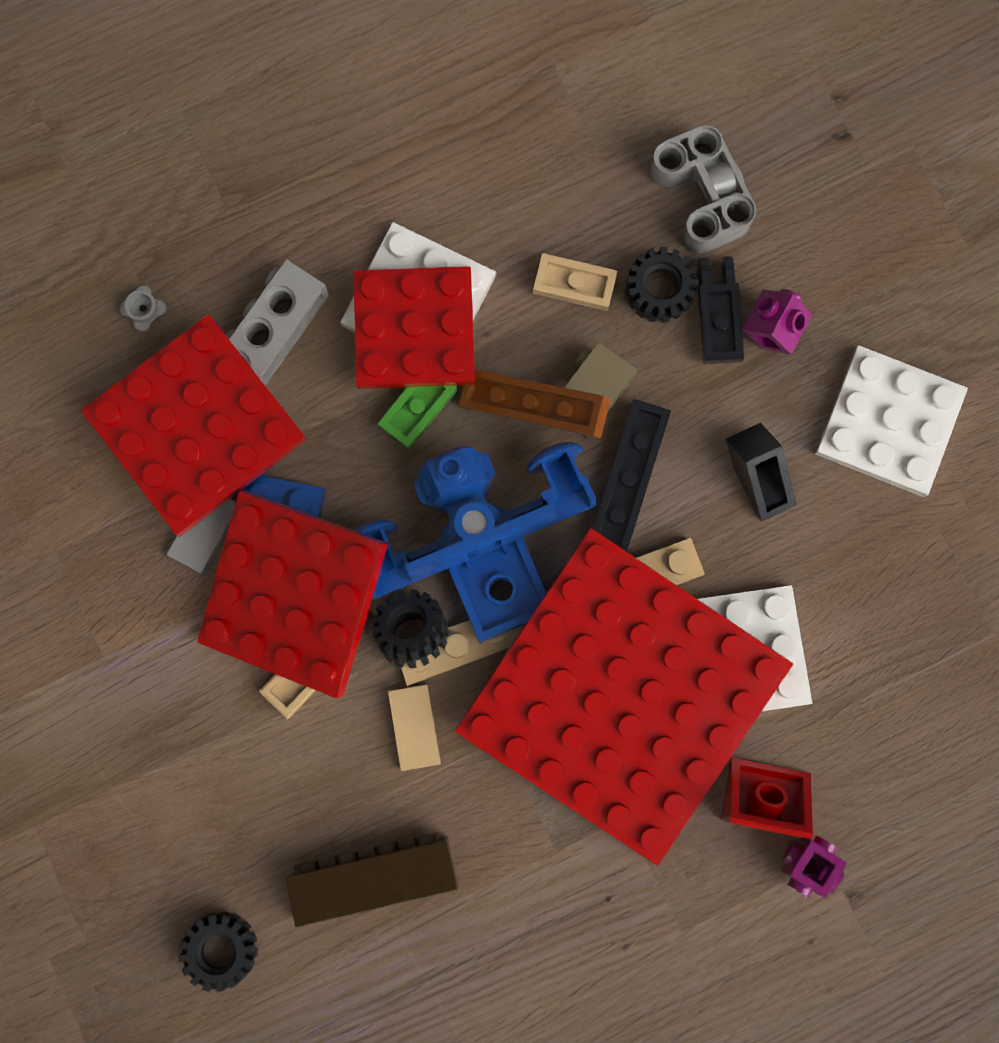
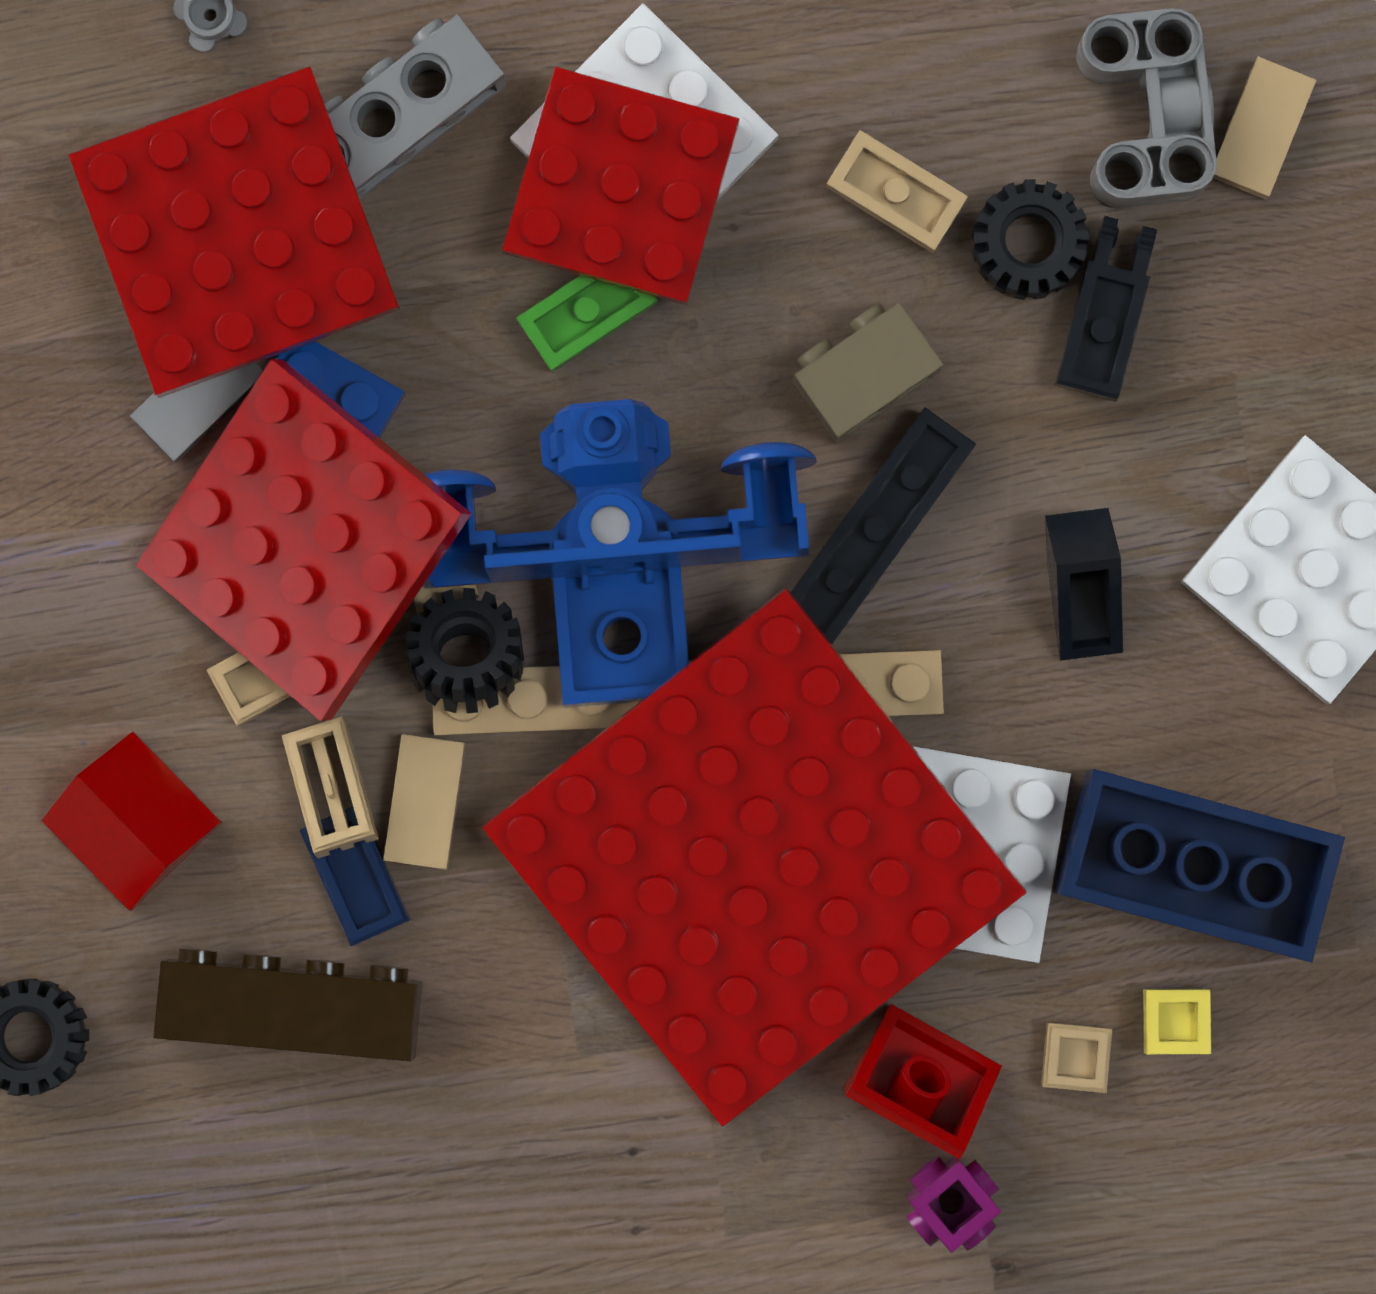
camera: 25 degrees right, 5 degrees up
(240, 797) = (130, 820): none -> red slope
(373, 764) = (343, 836): none -> tan tile
(386, 785) = (359, 886): none -> dark blue tile
(537, 403) = (768, 368): dark orange plate -> none
(772, 180) = (1262, 127): none -> tan tile
(777, 321) = (1190, 357): magenta brick -> none
(853, 753) = (1076, 1057): none -> tan tile
(888, 613) = (1199, 865): none -> dark blue brick
(906, 711) = (1177, 1021): none -> light yellow plate

